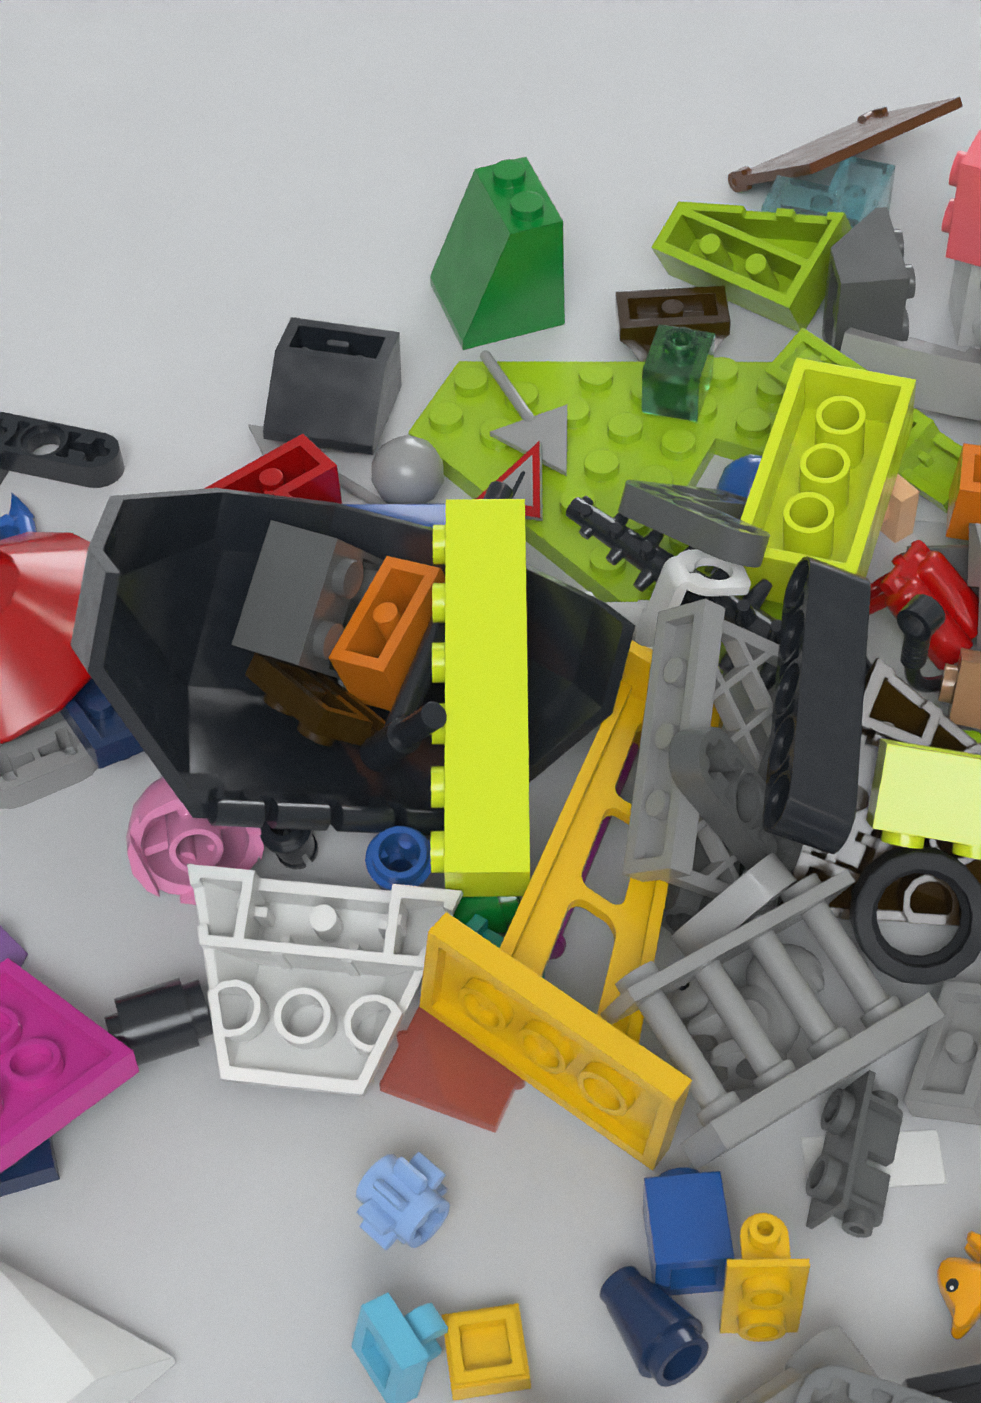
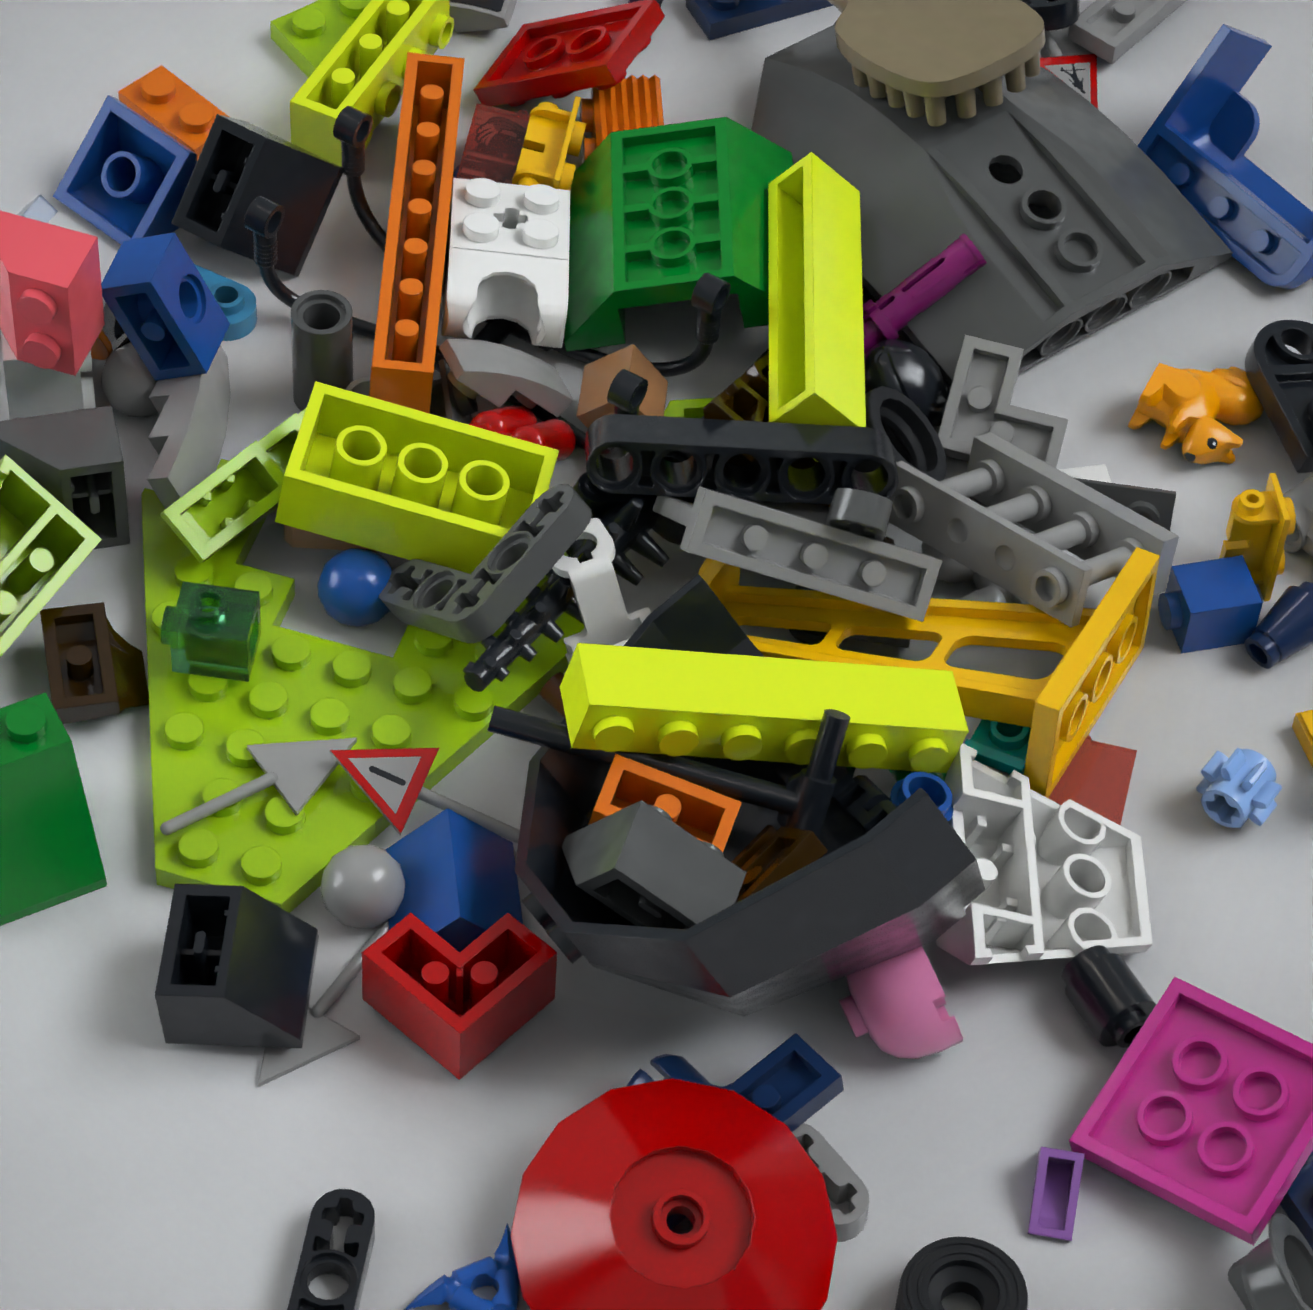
camera: 105 degrees left, 0 degrees up
(735, 905) = (938, 539): light grey beam -> none

